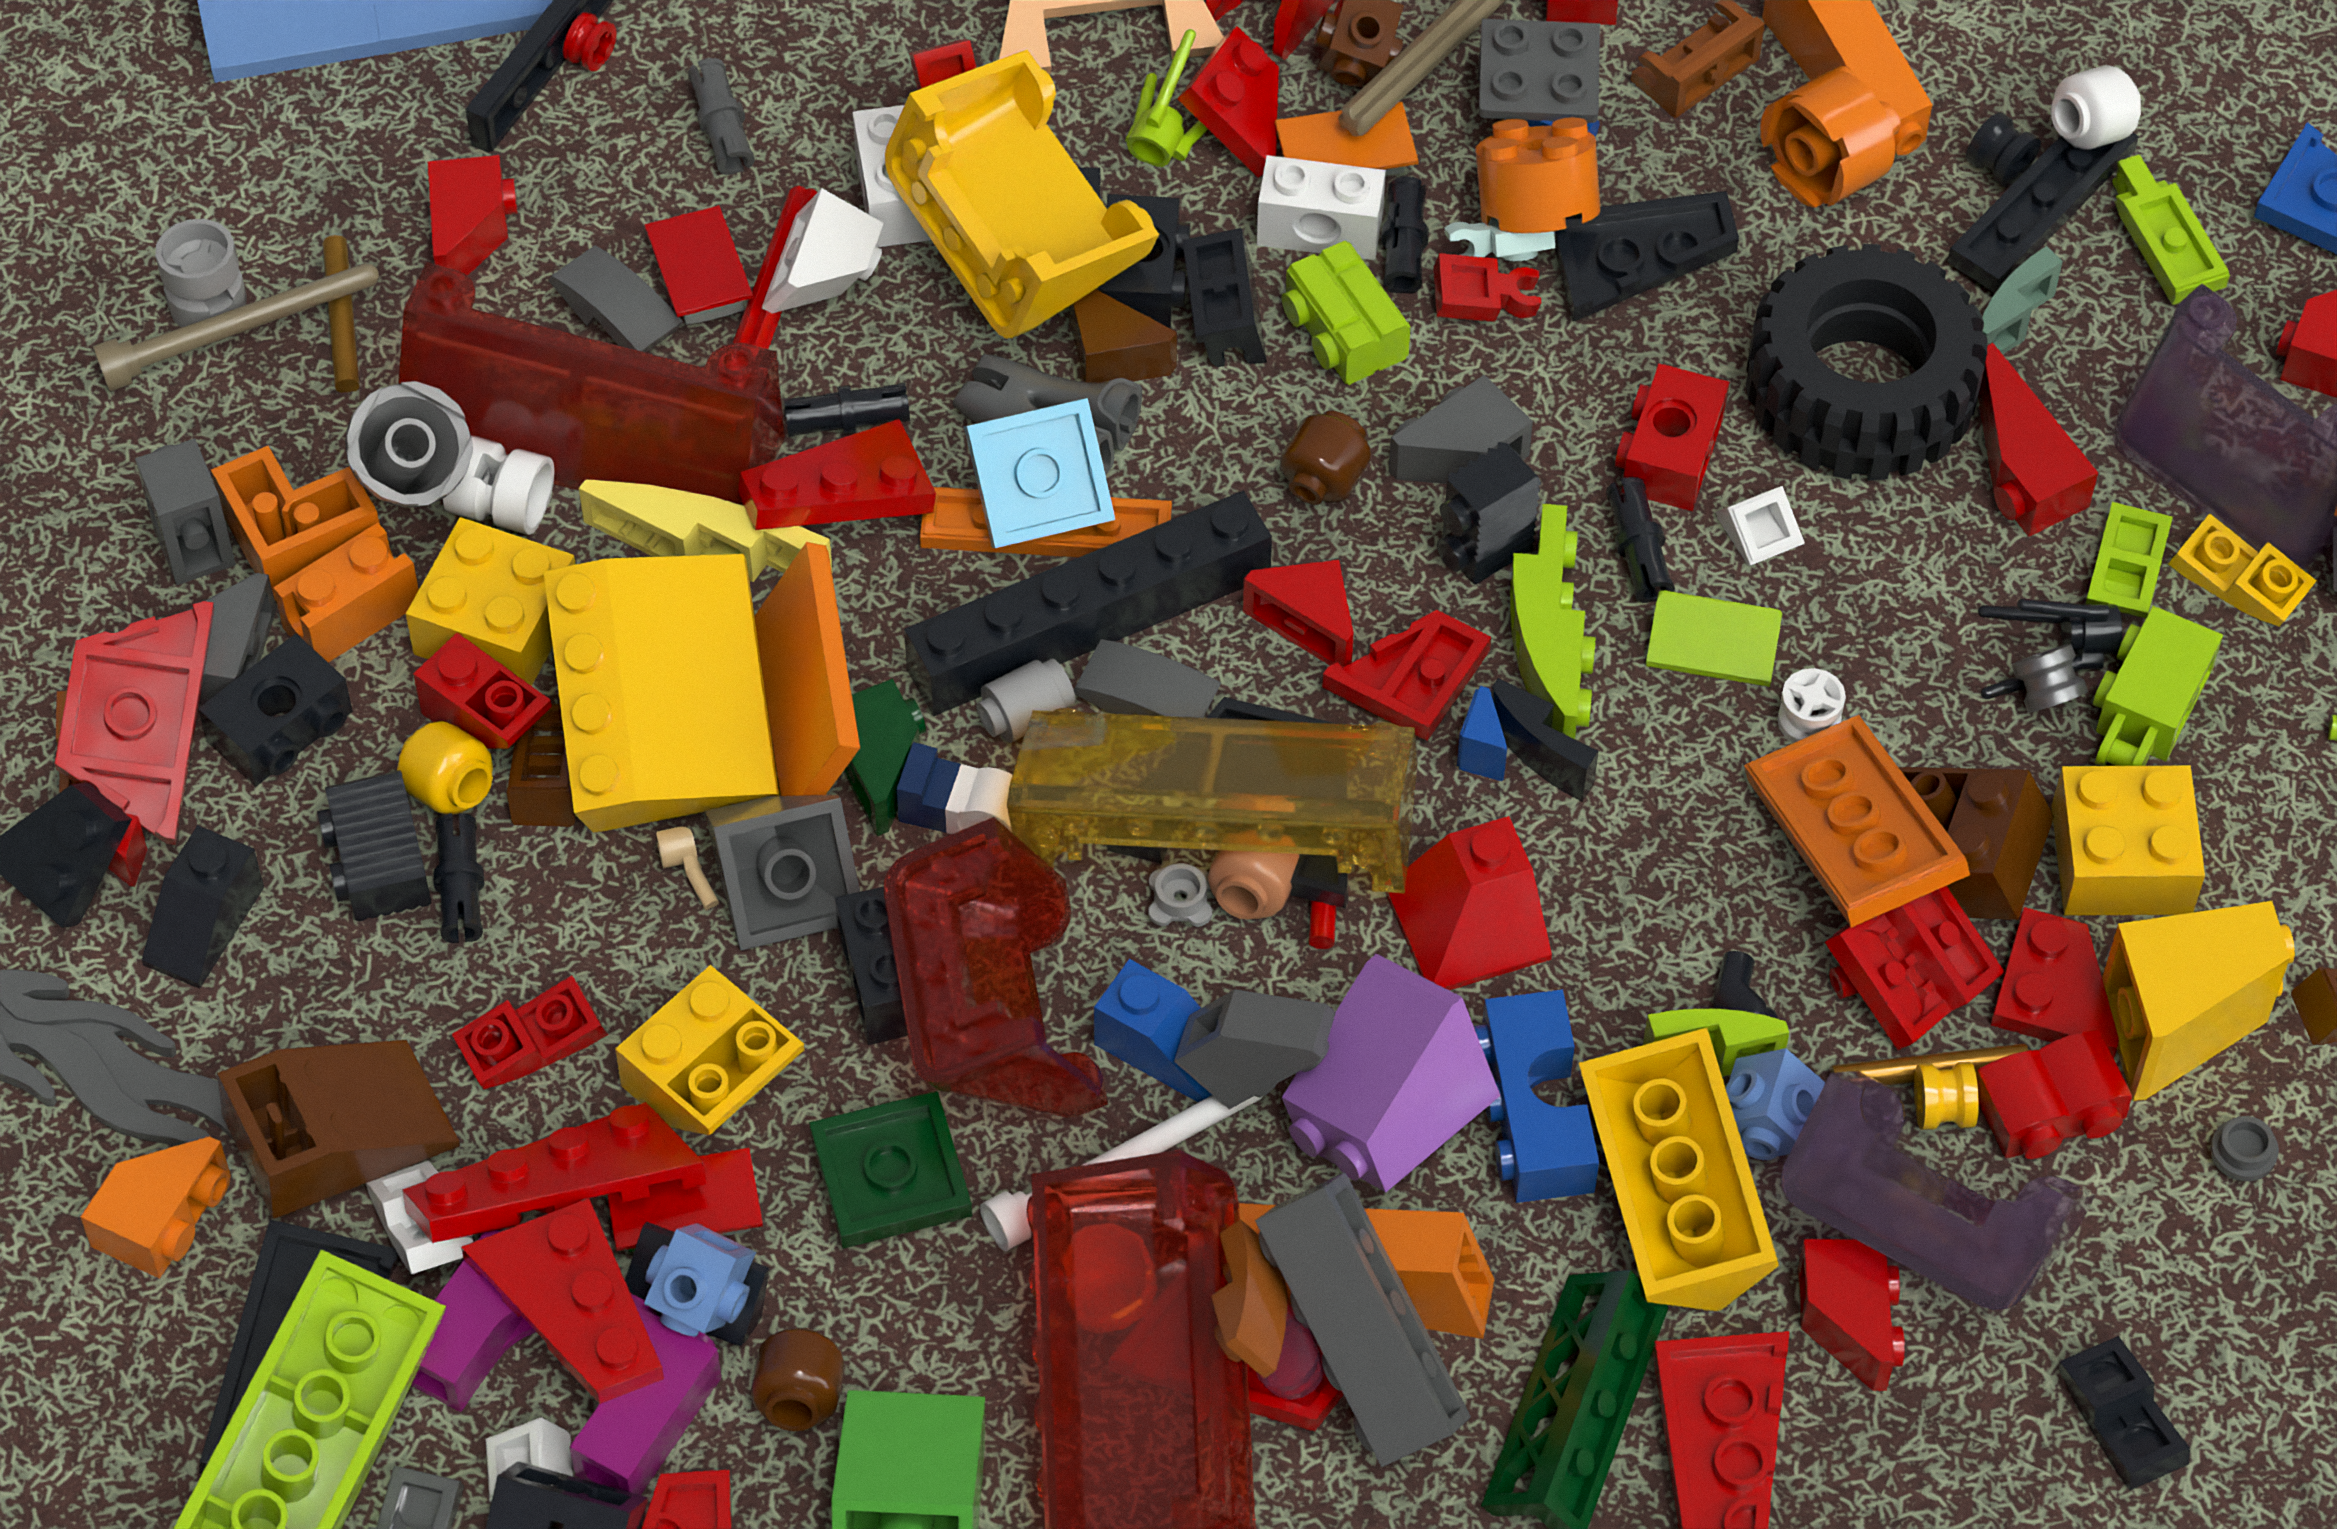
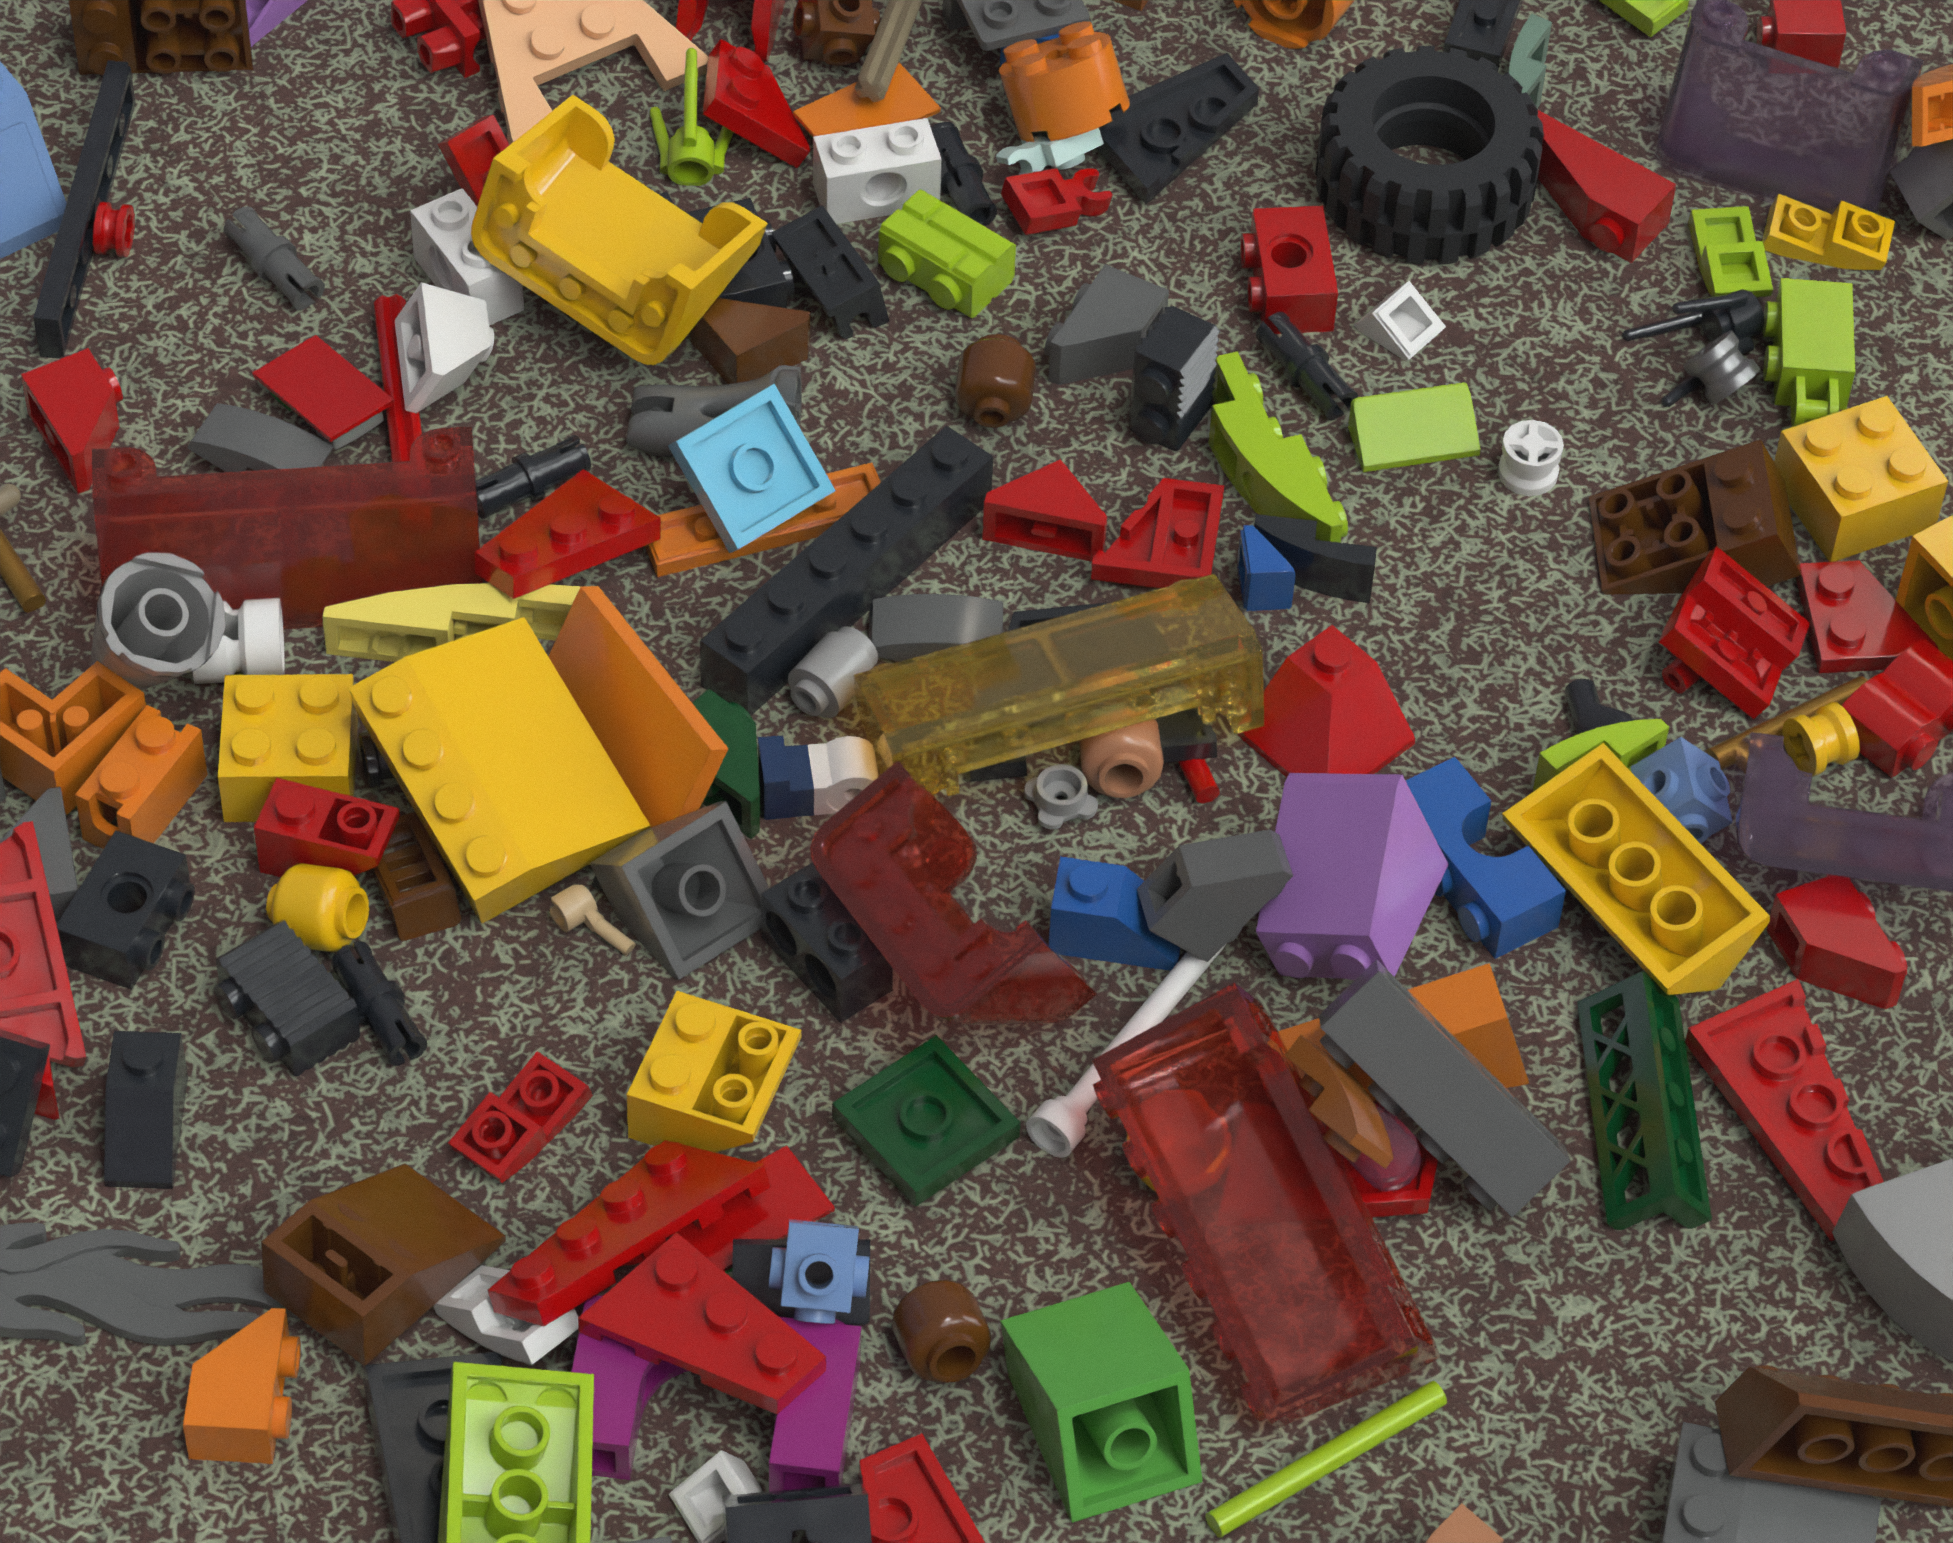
camera: 25 degrees left, 5 degrees down
(1856, 820) = (1630, 532): orange tile -> none

